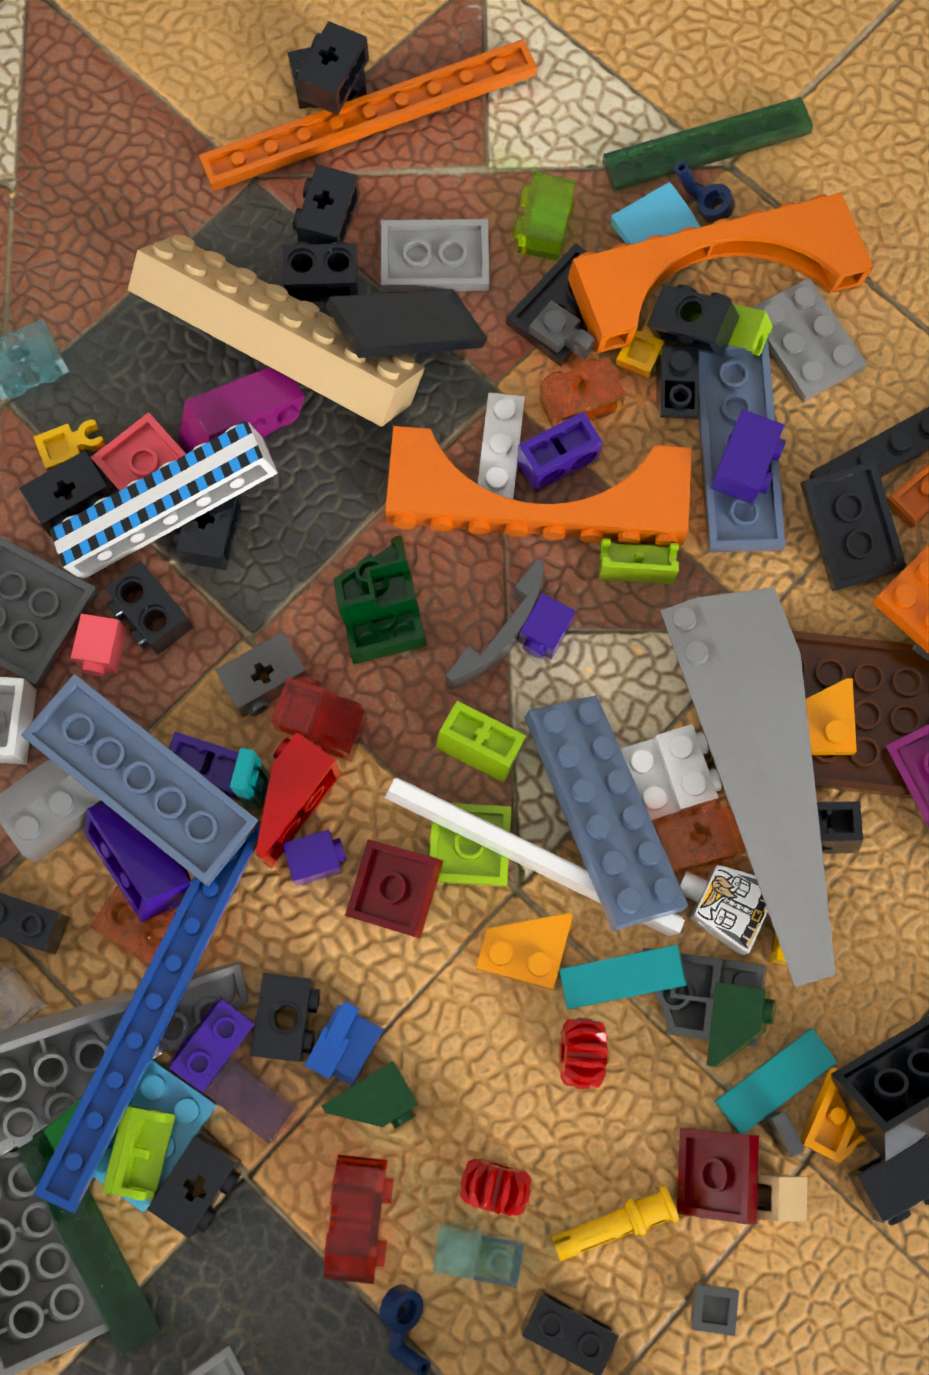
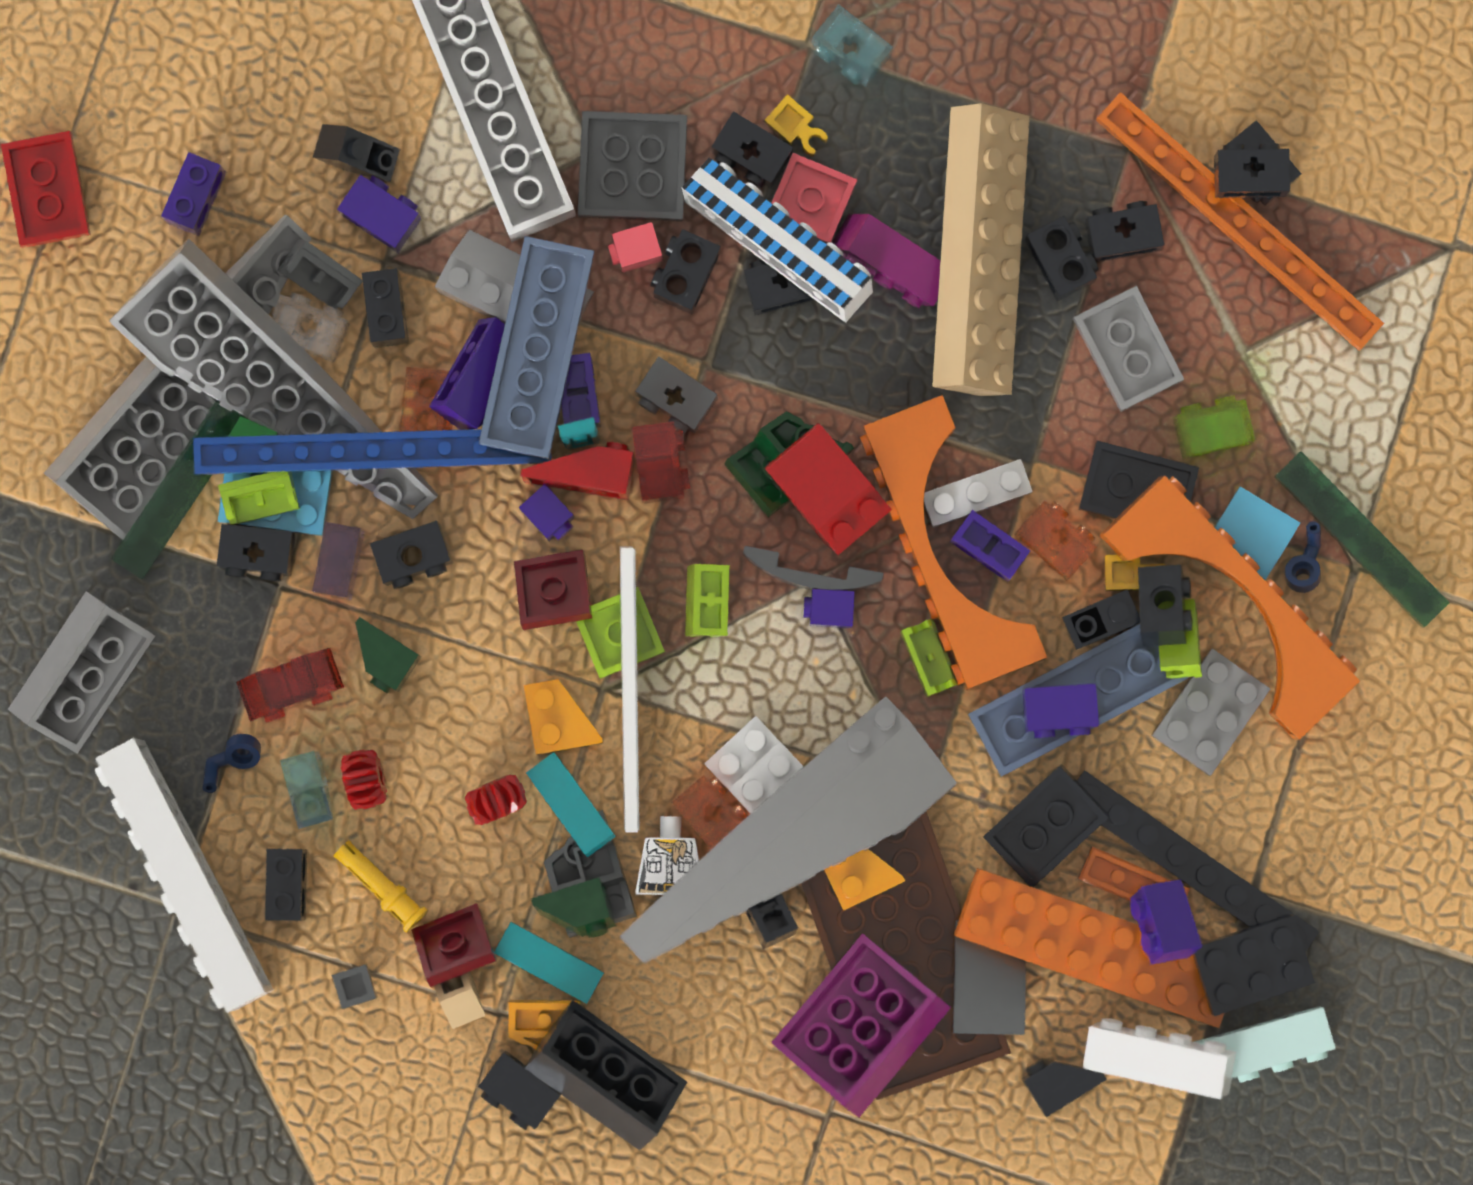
camera: 70 degrees right, 10 degrees up
(210, 1044) = (364, 508): dark purple brick -> none
(344, 1045) = (413, 612): blue piece -> none
(405, 323) = (1038, 360): black tile -> none
(430, 571) = (827, 489): none -> red slope
(560, 328) = (1104, 491): dark grey plate -> none
(605, 812) = (695, 727): sand blue plate -> none
(784, 1133) = (510, 985): dark grey tile -> none

